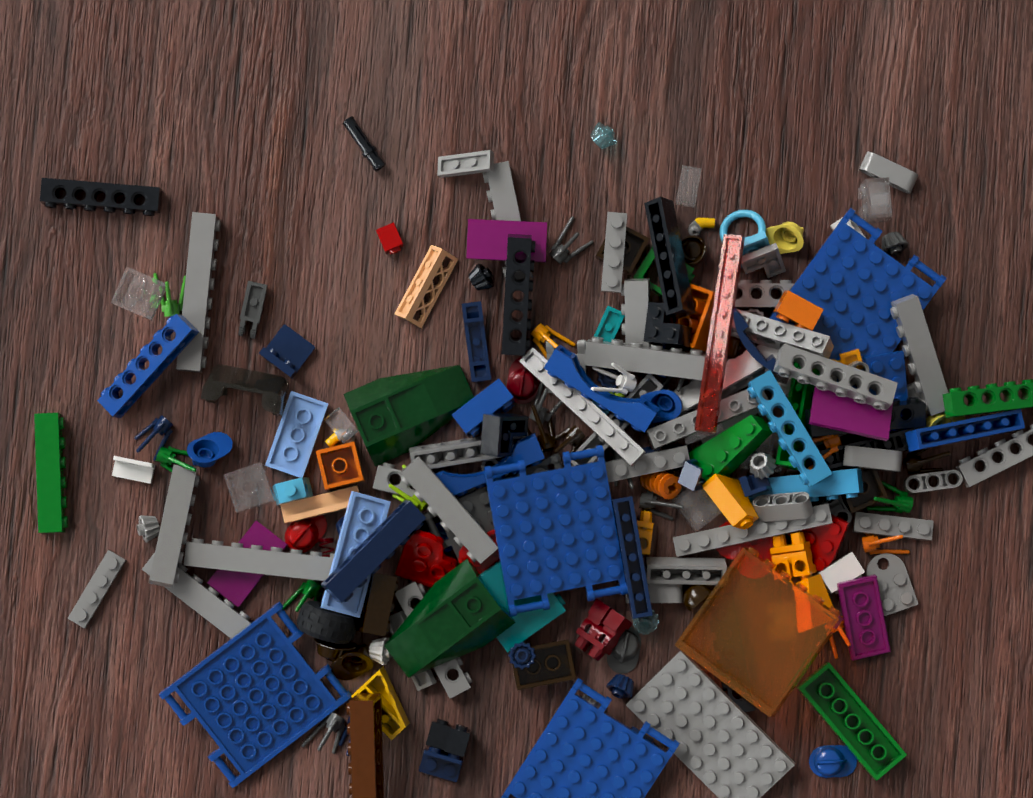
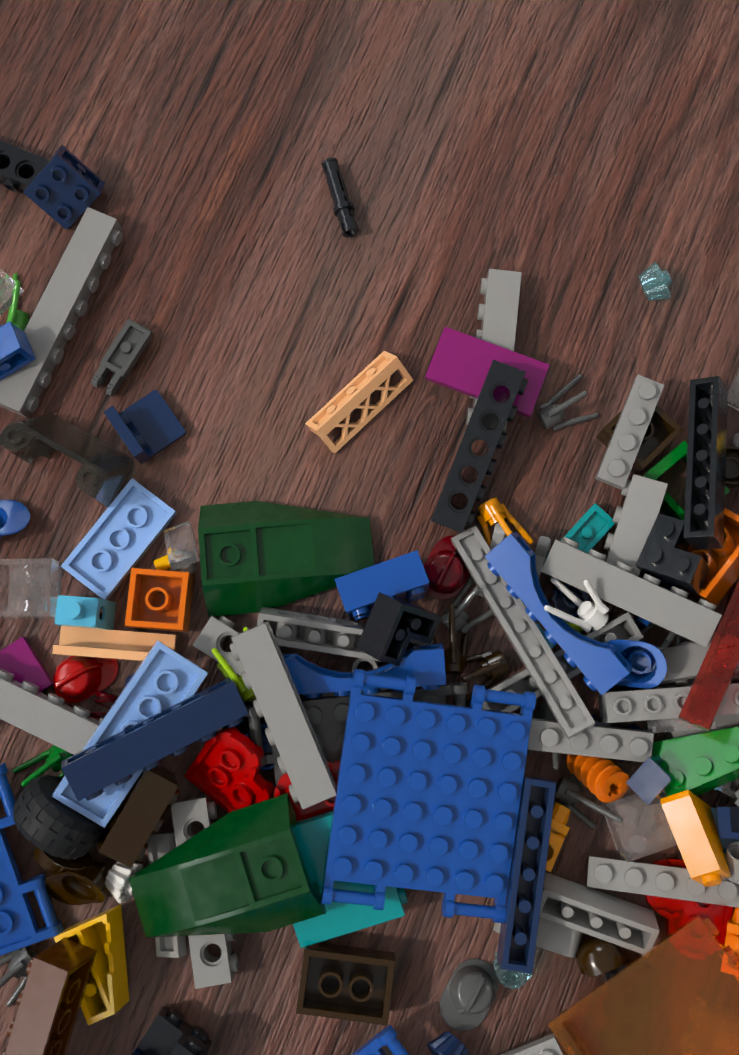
camera: 20 degrees right, 5 degrees down
(172, 202) = (64, 187): none -> dark blue bracket
(390, 238) = (332, 324): red brick -> none
(465, 163) = (464, 258): light grey plate -> none
(476, 341) = (401, 493): dark blue slope -> none
(481, 277) = (436, 412): black piece -> none
(522, 655) = (319, 967): dark blue piece -> none
(601, 629) = (469, 961): dark red hips -> none

